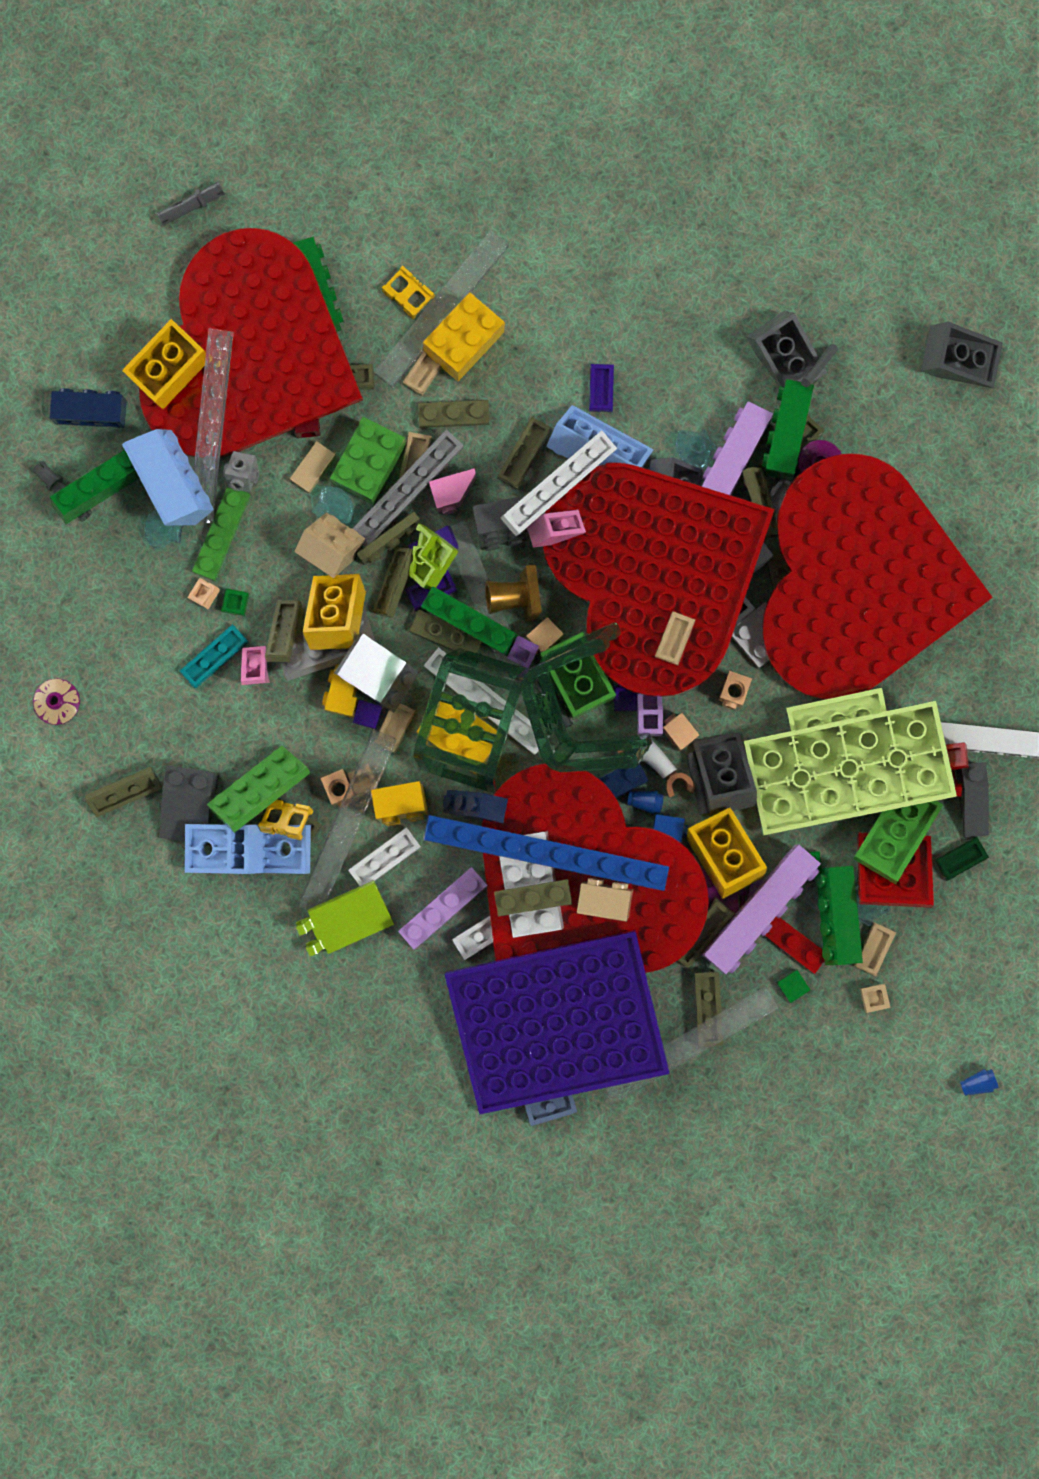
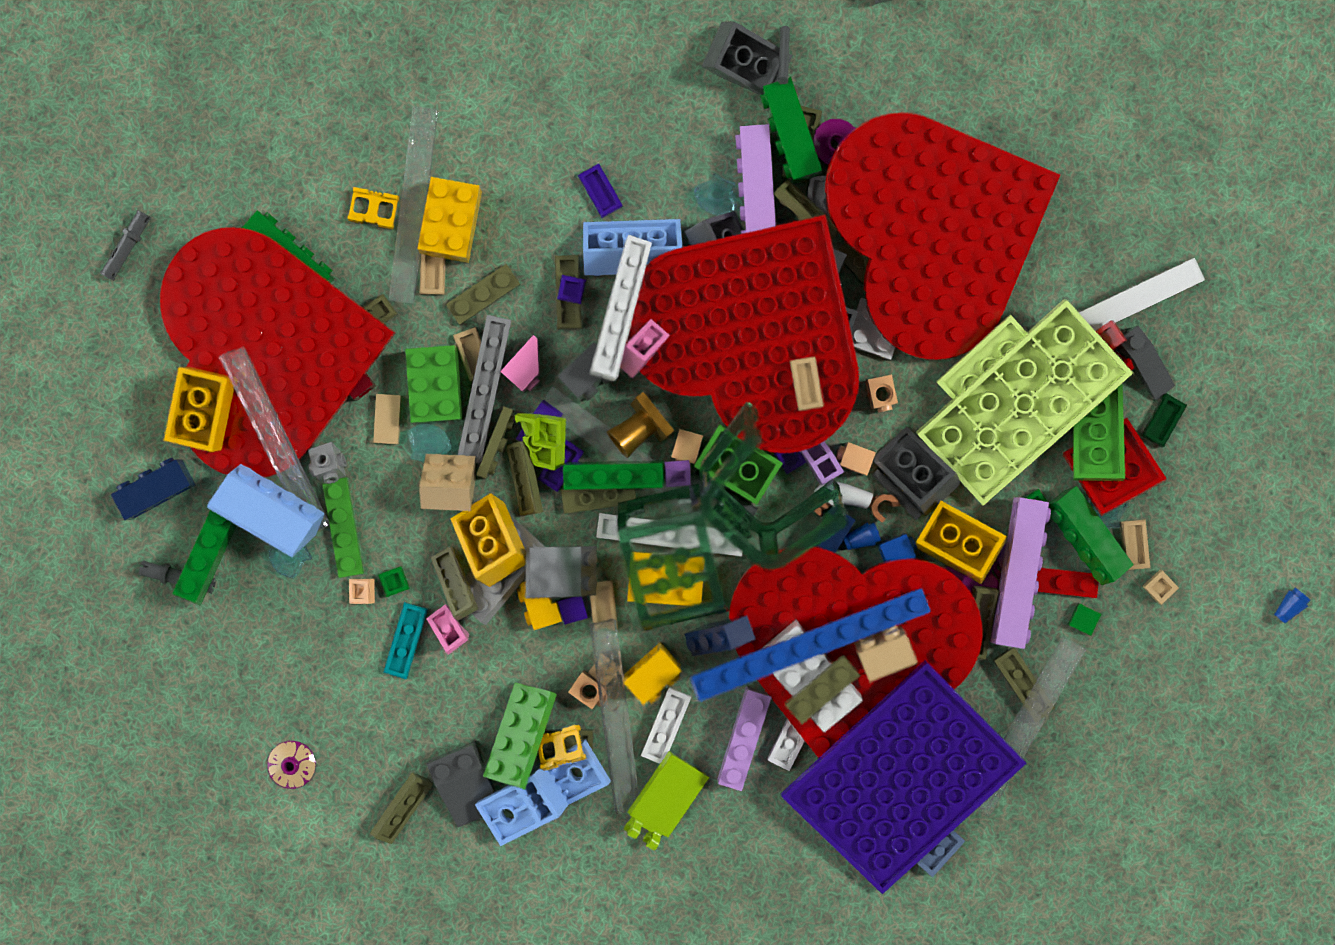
camera: 35 degrees left, 5 degrees up
(528, 451) = (571, 289): none -> dark purple tile

